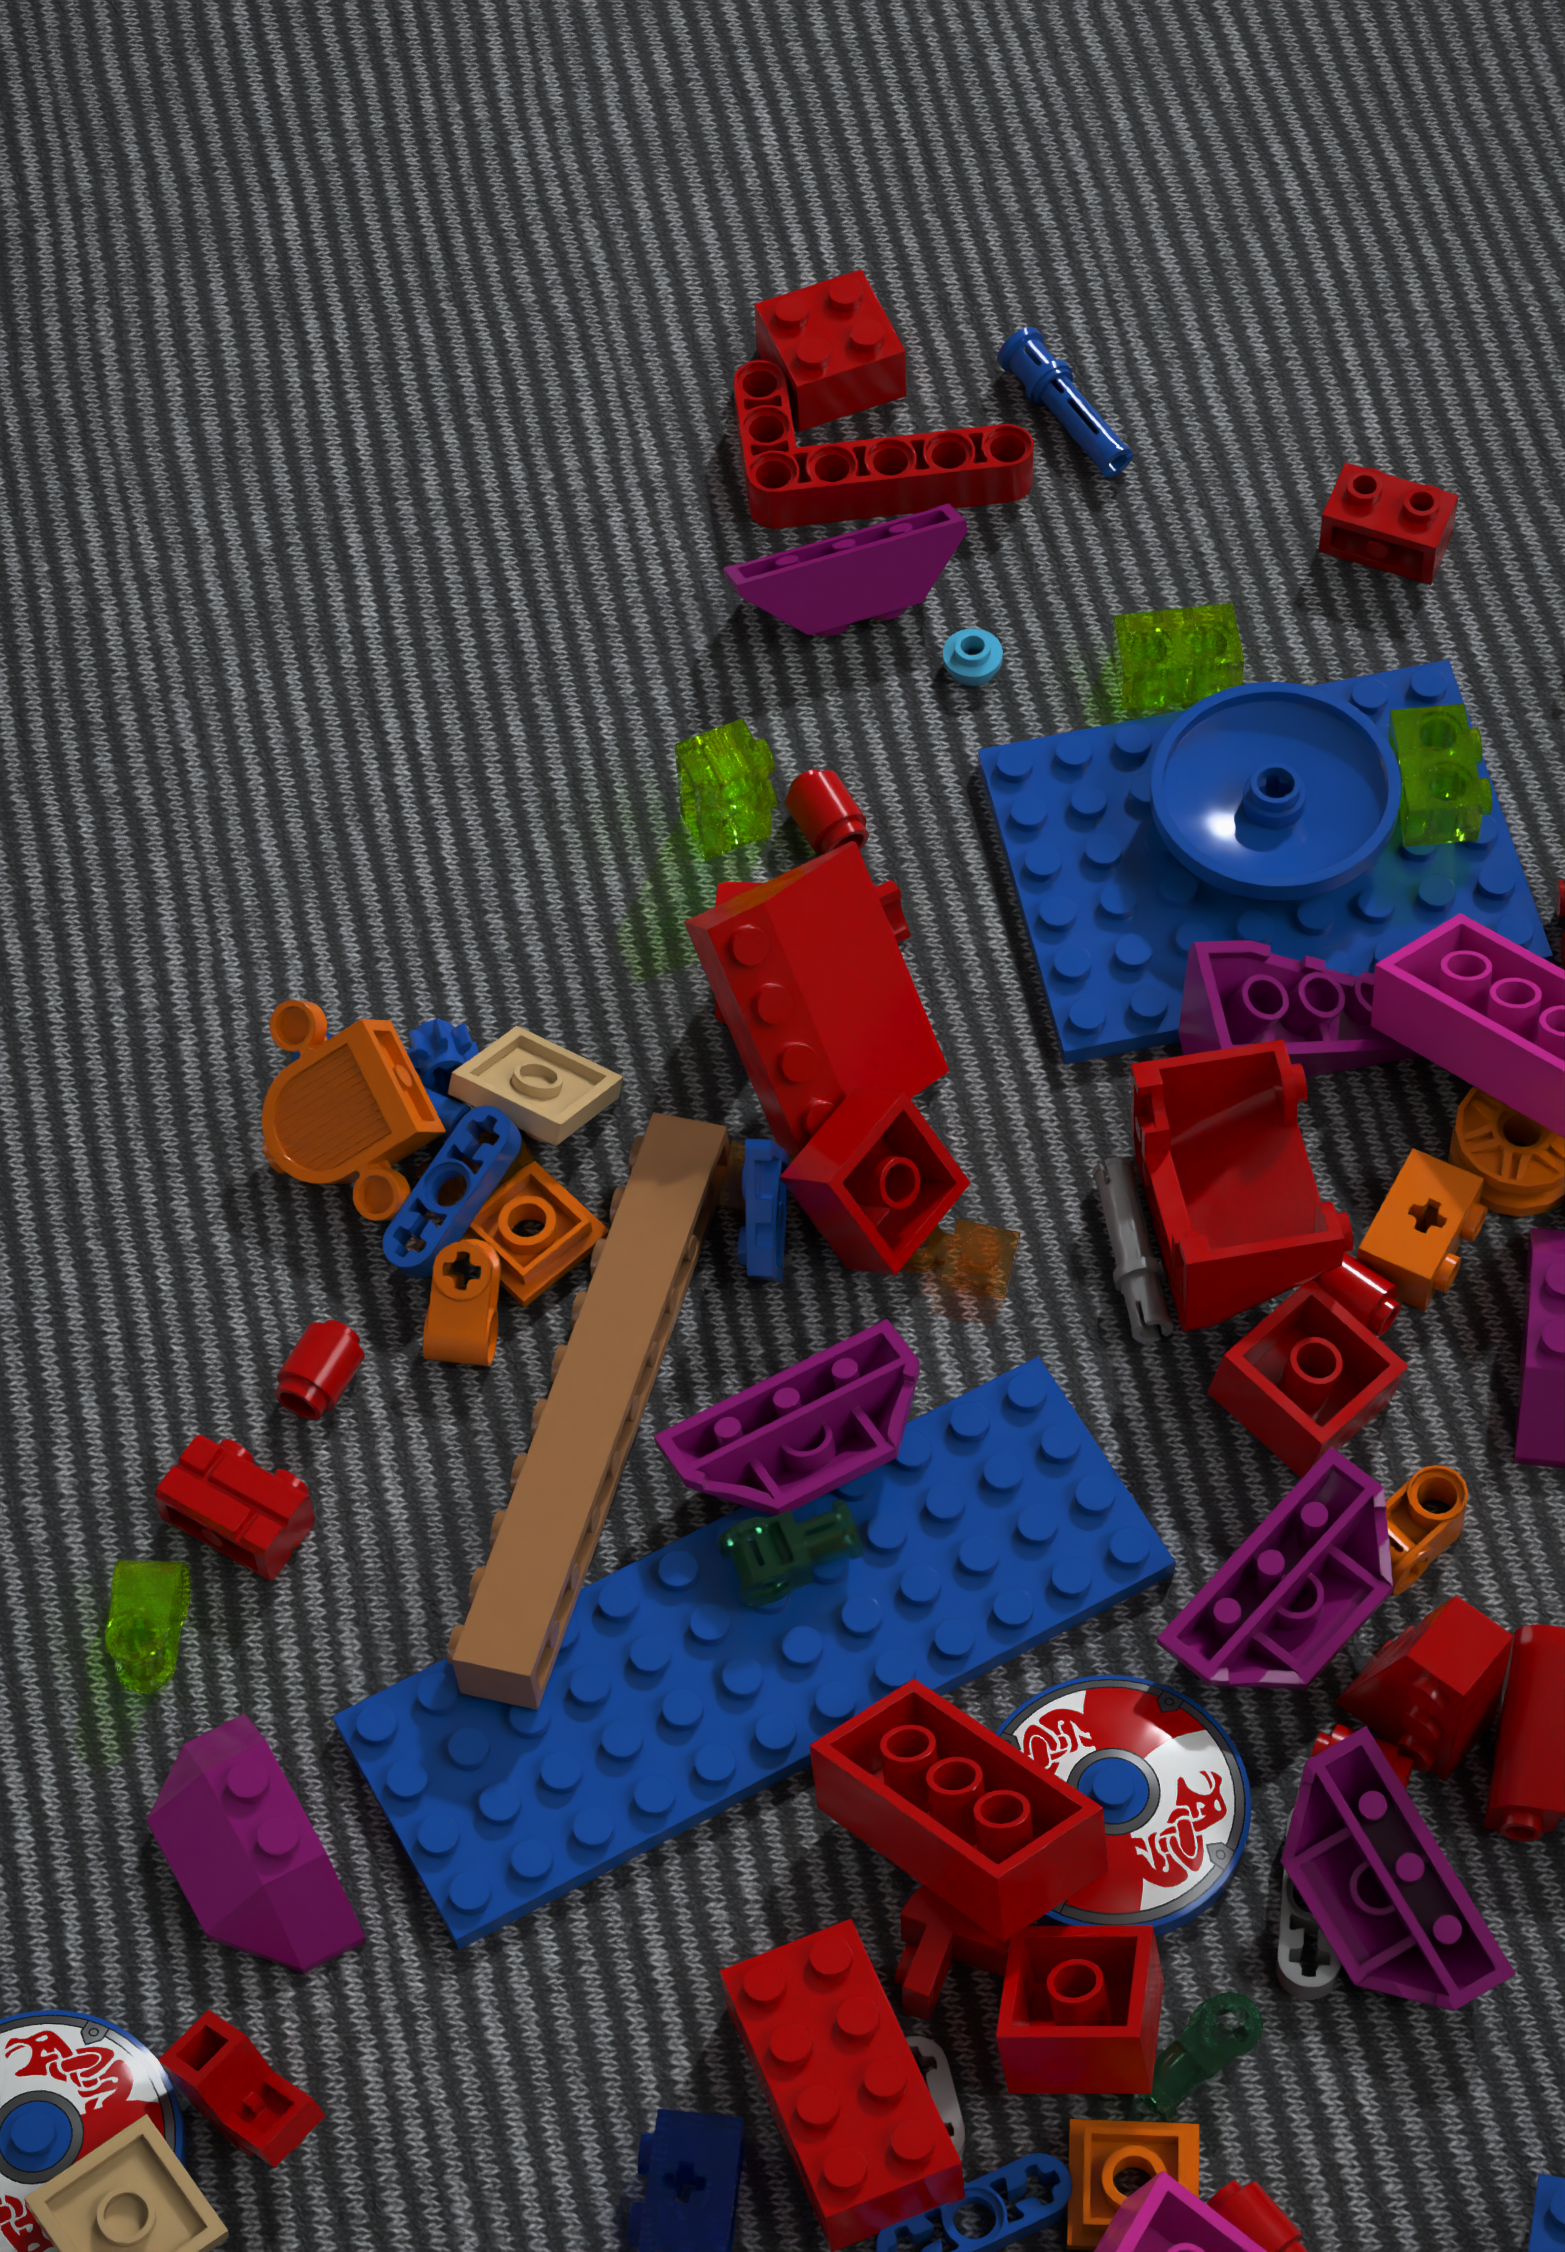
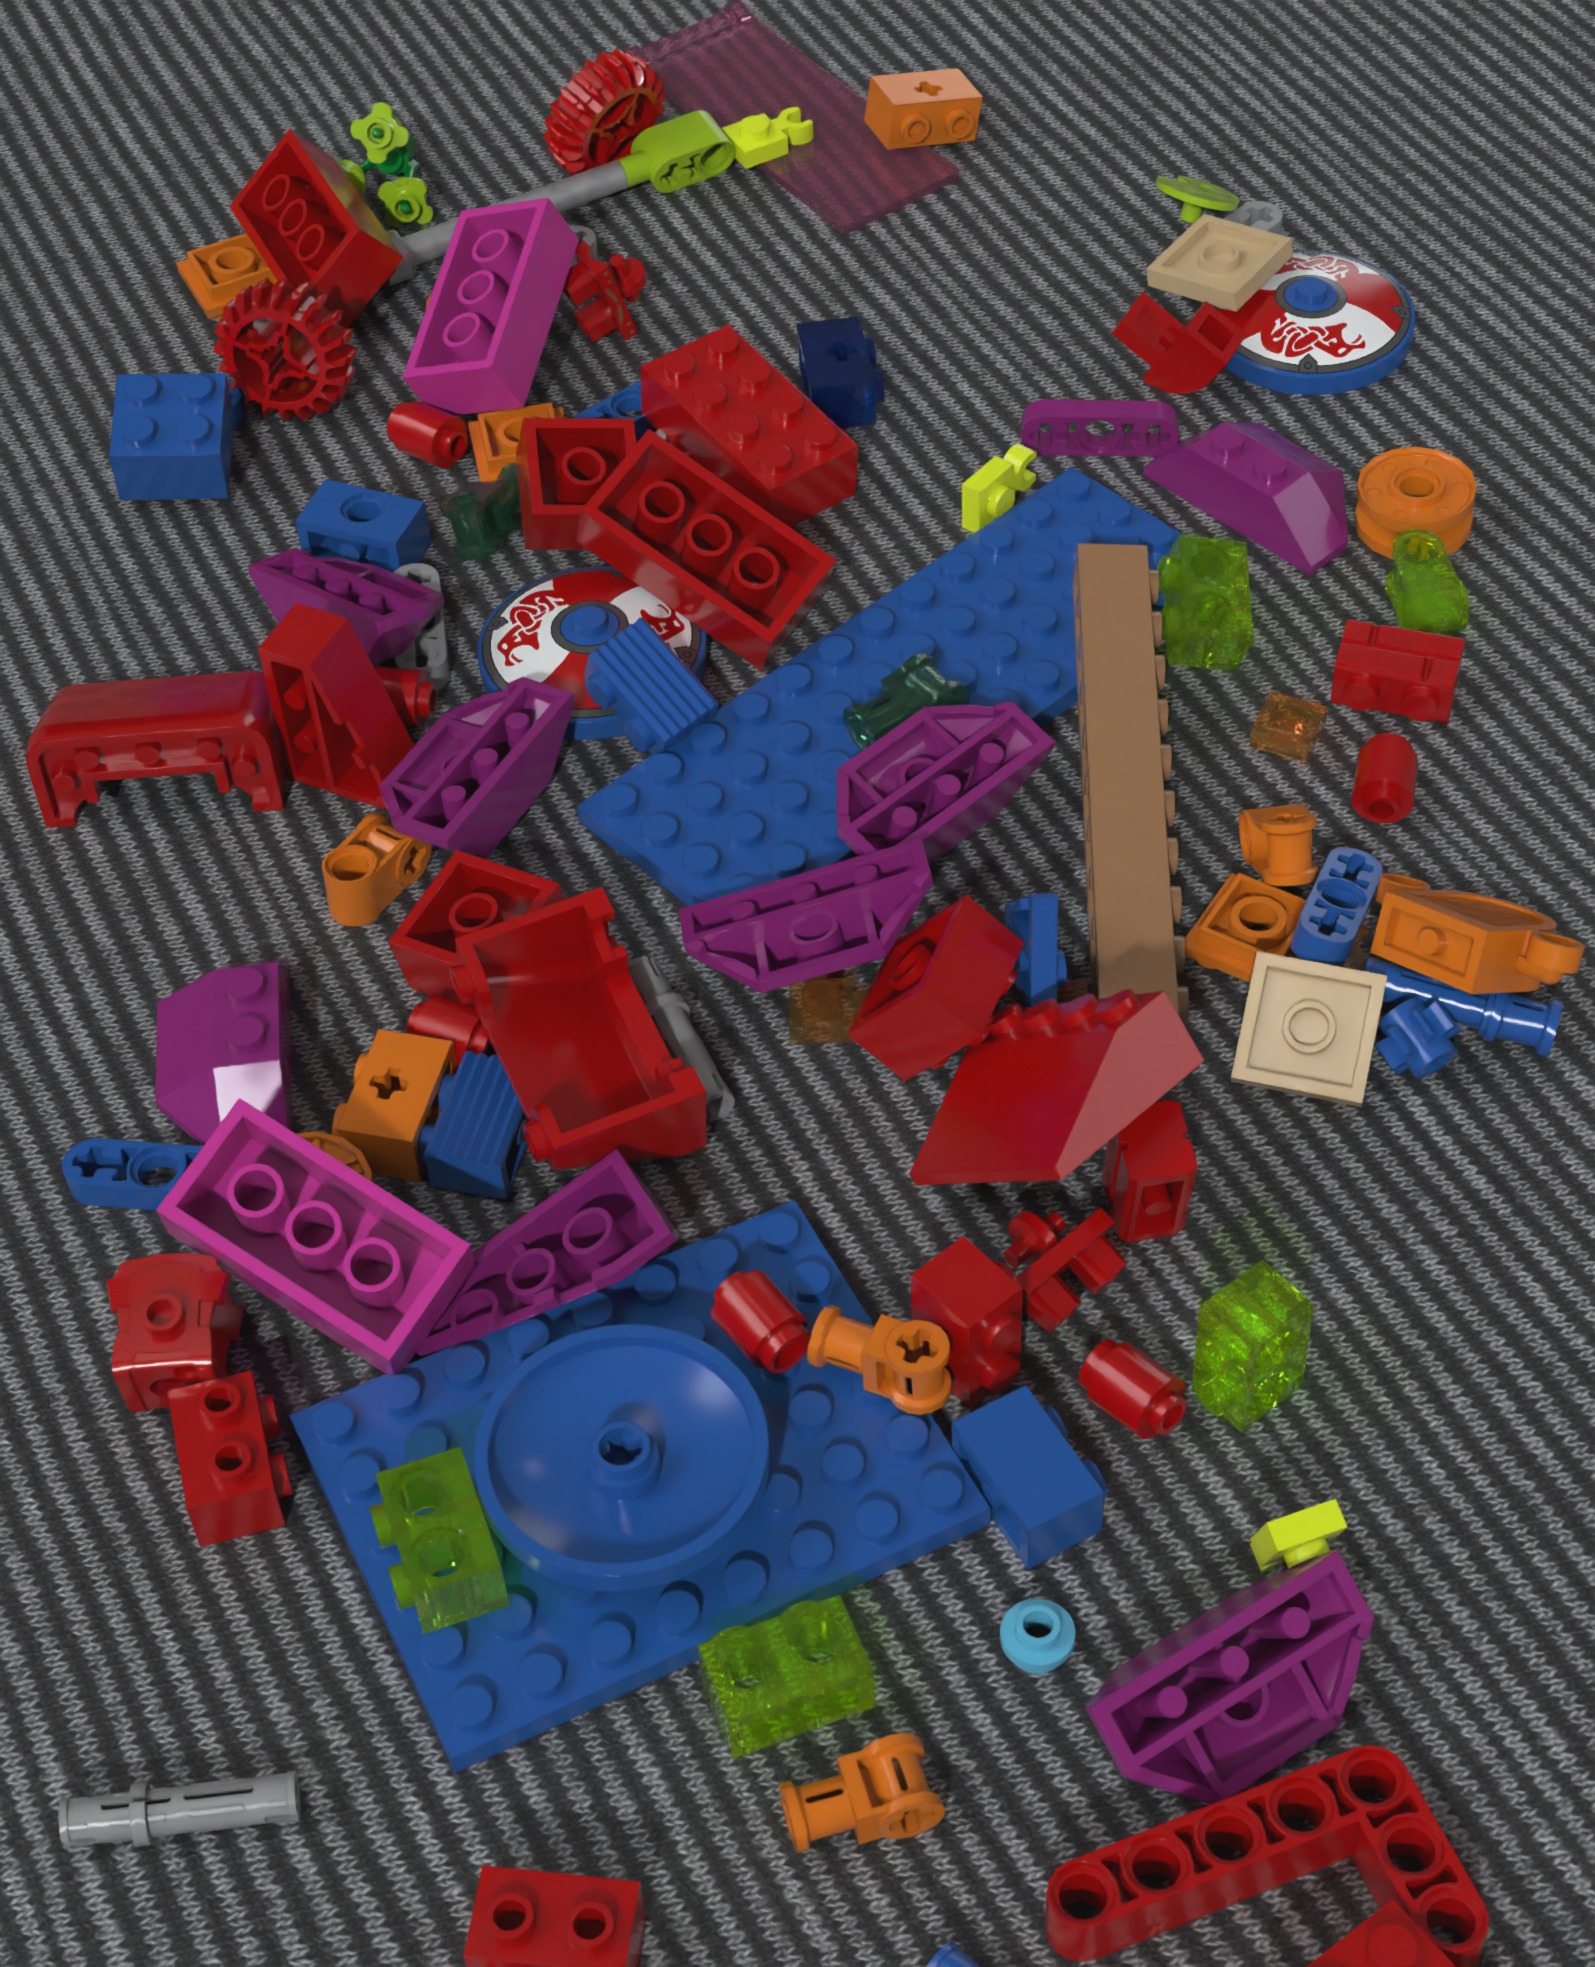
camera: 165 degrees right, 10 degrees down
(78, 1715) = (1414, 492): none -> orange wheel
(382, 1471) = (1288, 726): none -> clear orange plate
(396, 1995) = (1116, 443): none -> magenta beam
(402, 1628) = (1206, 602): none -> clear neon green brick
(567, 1913) = (994, 485): none -> neon yellow plate
(755, 639) = (1297, 1536): none -> neon yellow plate
(939, 761) = (1030, 1475): none -> blue brick
(952, 862) = (979, 1312): none -> red brick
(976, 1279) = (810, 919): none -> magenta wedge
(1031, 843) = (886, 1357): none -> orange connector
(1065, 1661) = (647, 688): none -> blue brick
(1128, 899) = (761, 1321): none -> red brick
(1138, 567) = (865, 1796): none -> orange connector
(1343, 2026) = (364, 526): none -> blue brick
(1354, 1168) = (478, 1131): none -> blue brick

